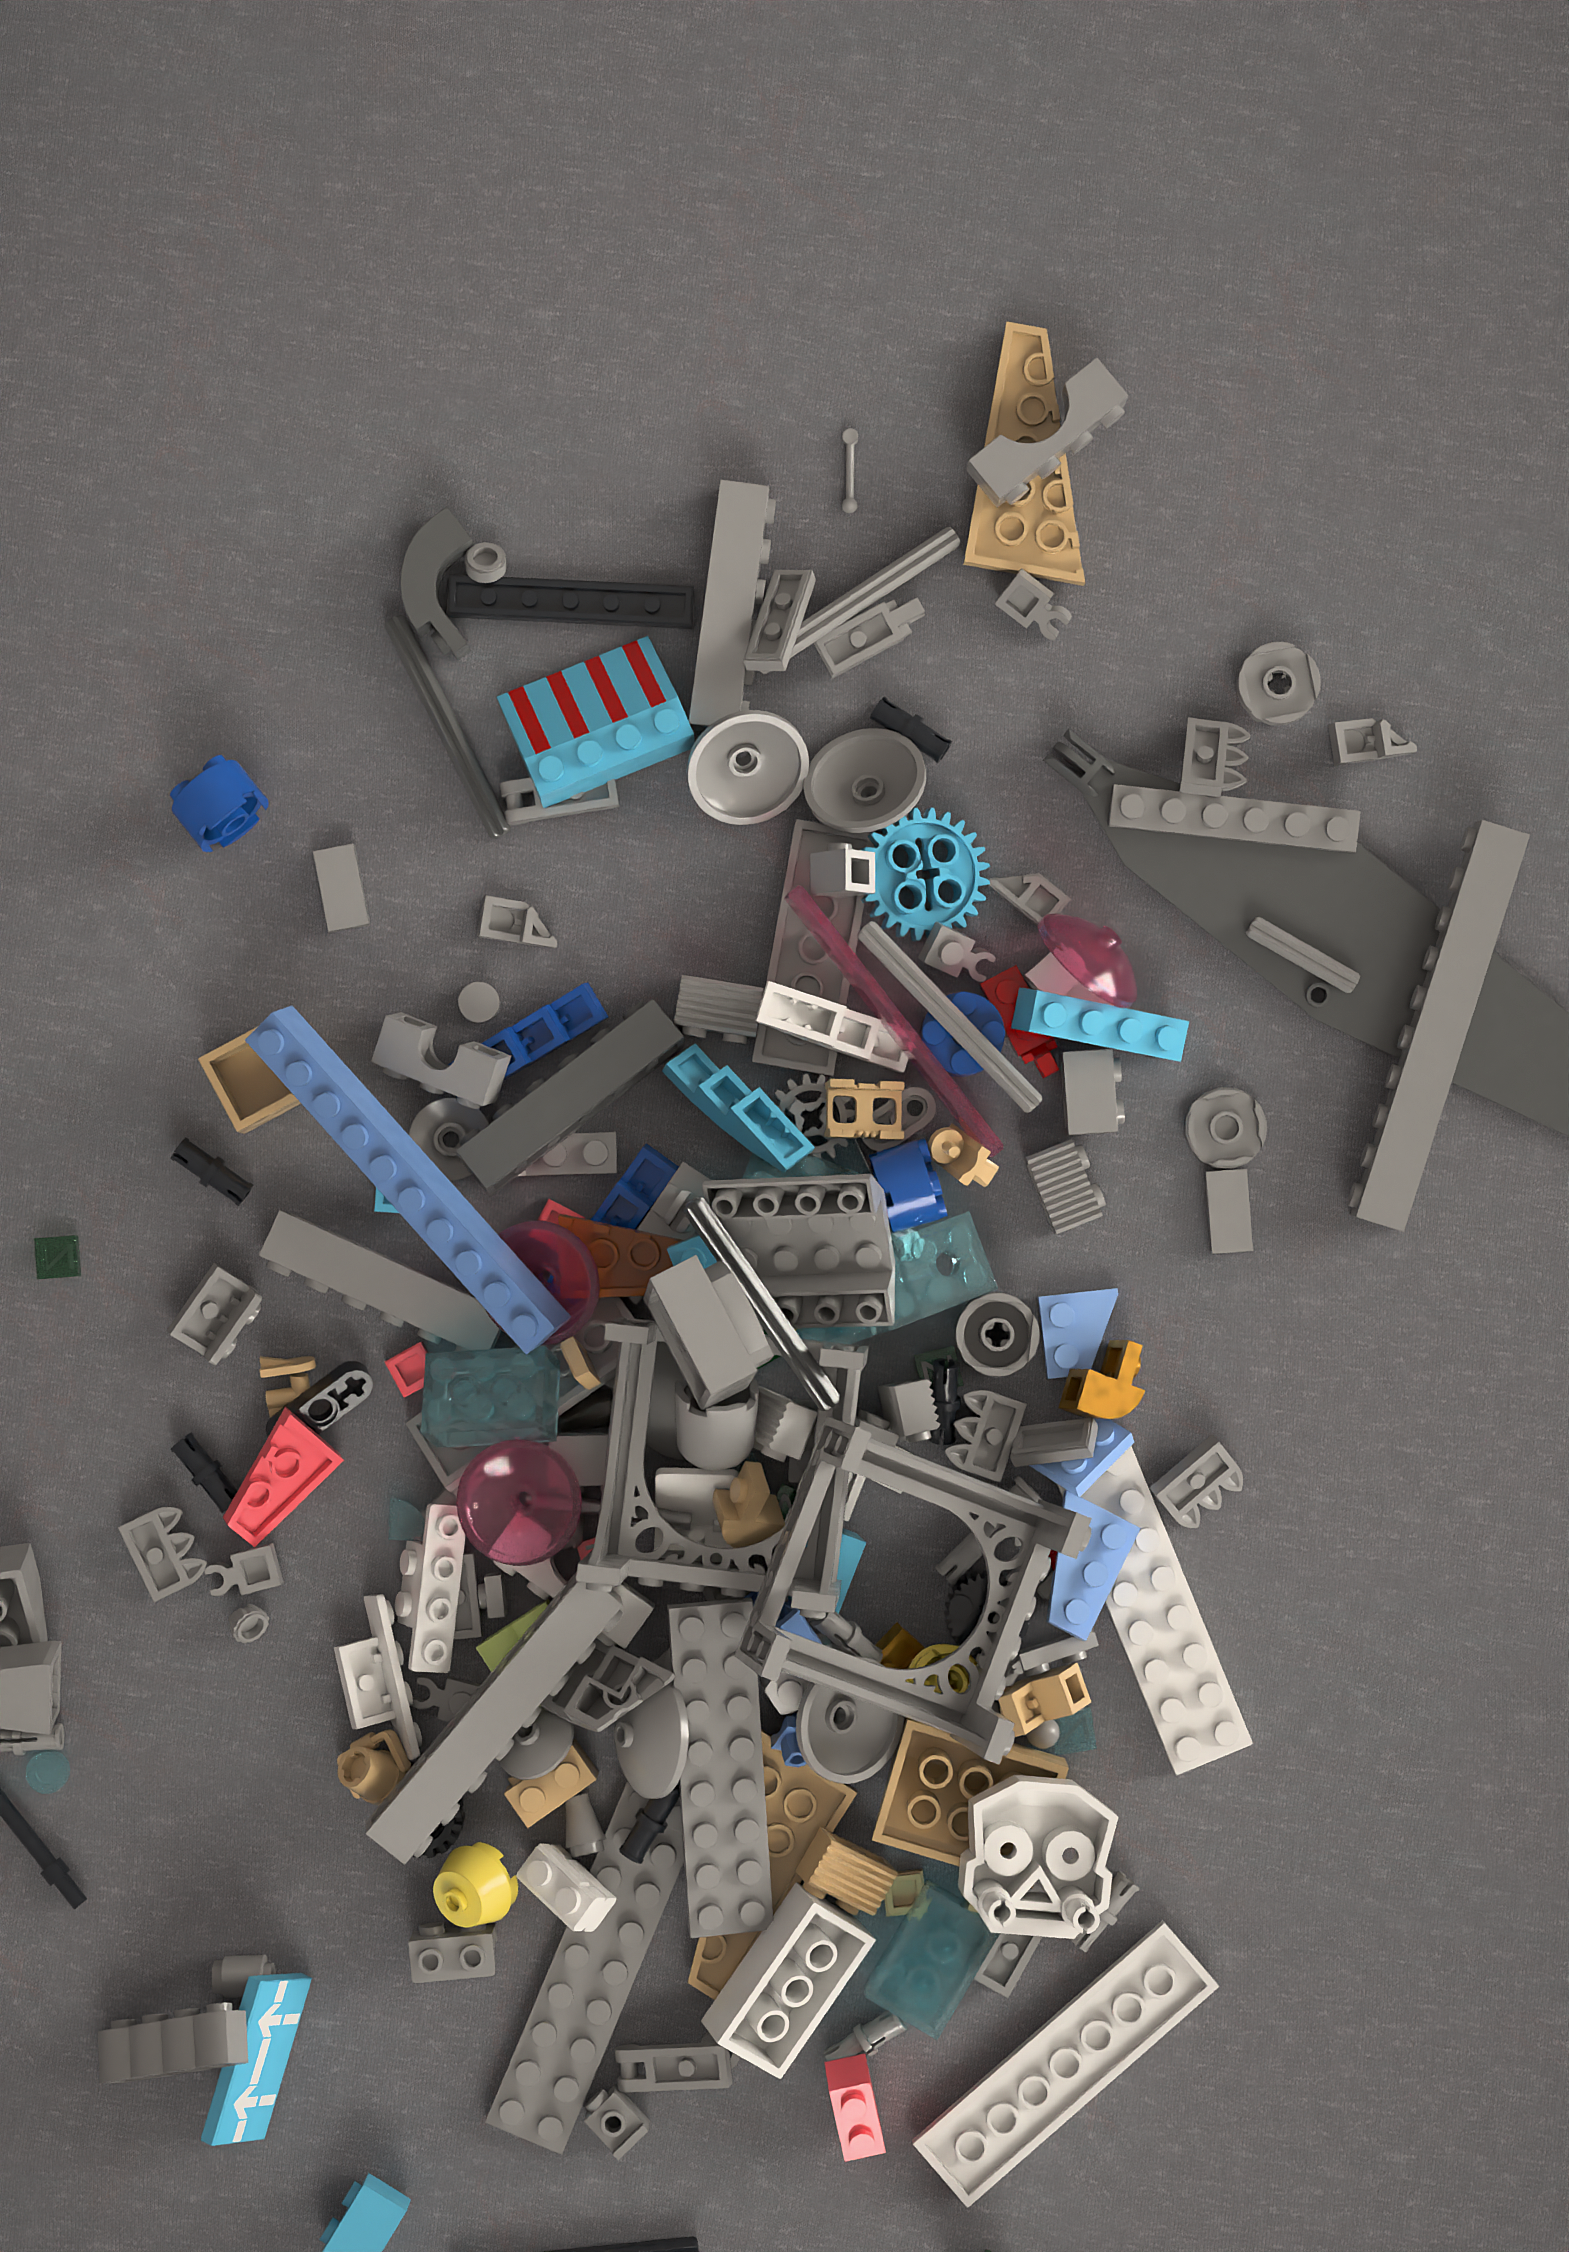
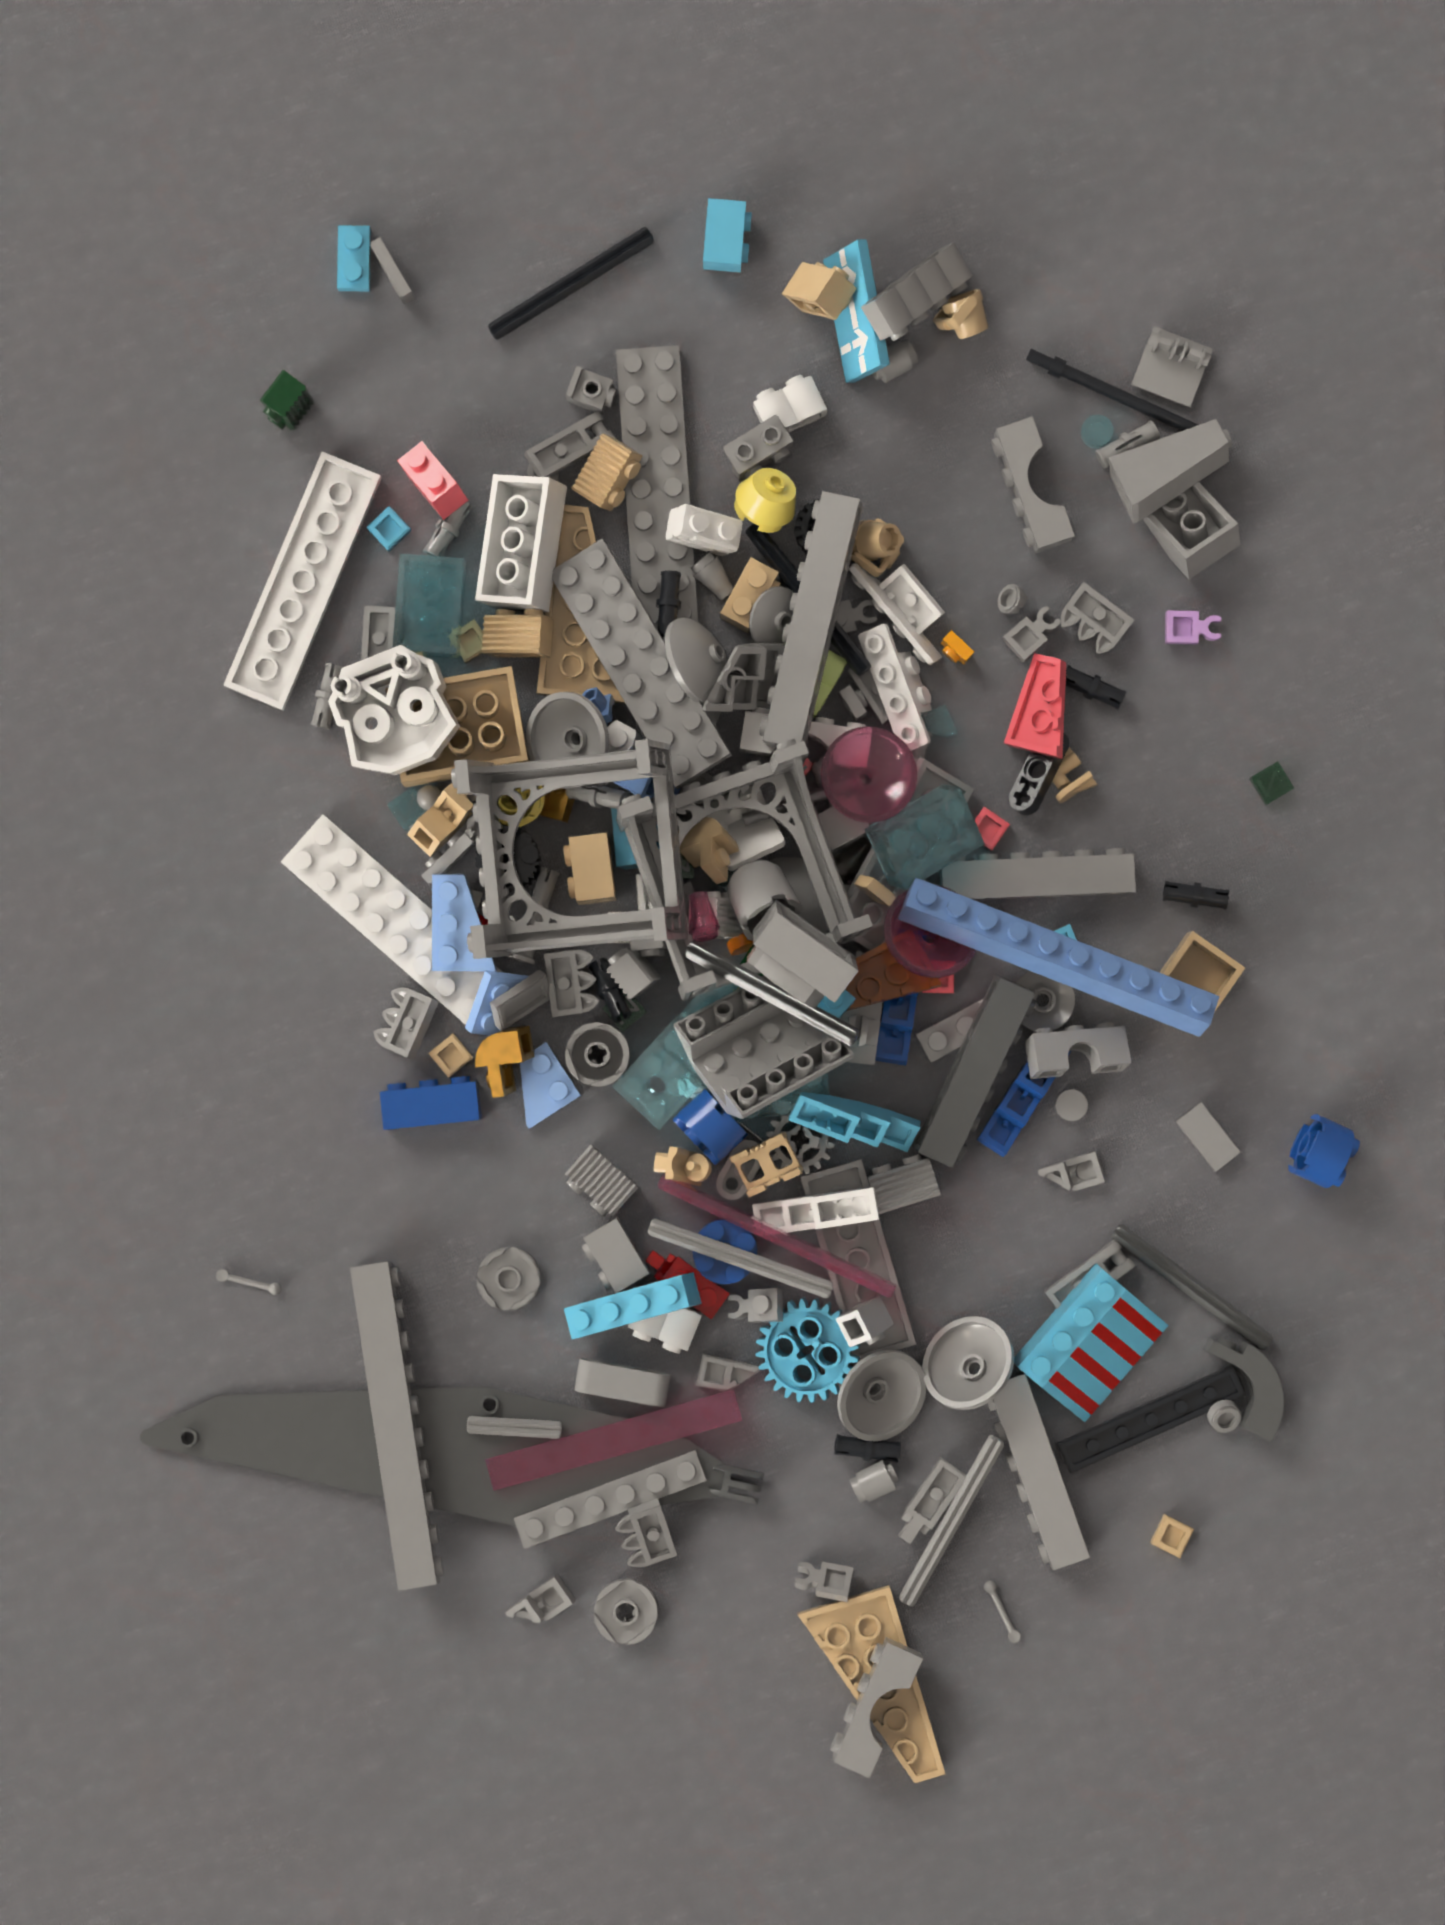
camera: 160 degrees right, 0 degrees up
(62, 1489) = (1185, 627): none -> lavender plate
(132, 1990) = (963, 314): none -> tan piece
(163, 1694) = (1045, 523): none -> light grey arch
(216, 1314) = (1142, 798): light grey bracket -> none
(286, 2105) = (820, 290): none -> tan brick
(342, 1598) = (956, 648): none -> light orange plate
(384, 1983) = (794, 405): none -> white brick
(493, 1785) = (789, 576): none -> black axle
(614, 459) = (1172, 1536): none -> tan tile
(644, 2012) = (607, 472): none -> tan brick
(769, 1379) = (739, 944): none -> orange tile
(779, 620) = (998, 1478): light grey tile -> none
(798, 1430) = (702, 919): none -> clear pink cone
(896, 1554) = (591, 869): none -> tan piece
(922, 687) = (874, 1481): none -> light grey brick
(933, 2074) = (389, 528): none -> medium azure tile
(1091, 957) = (662, 1349): clear pink dish -> none
(1155, 944) = (622, 1382): none -> light grey beam
(1165, 1418) = (451, 1055): none -> tan tile
(1196, 883) = (613, 1439): none -> clear pink tile
(1217, 1374) = (430, 1103): none -> blue brick
(1228, 1211) = (477, 1221): light grey tile -> none
(1550, 1295) = (223, 1275): none -> light grey hinge

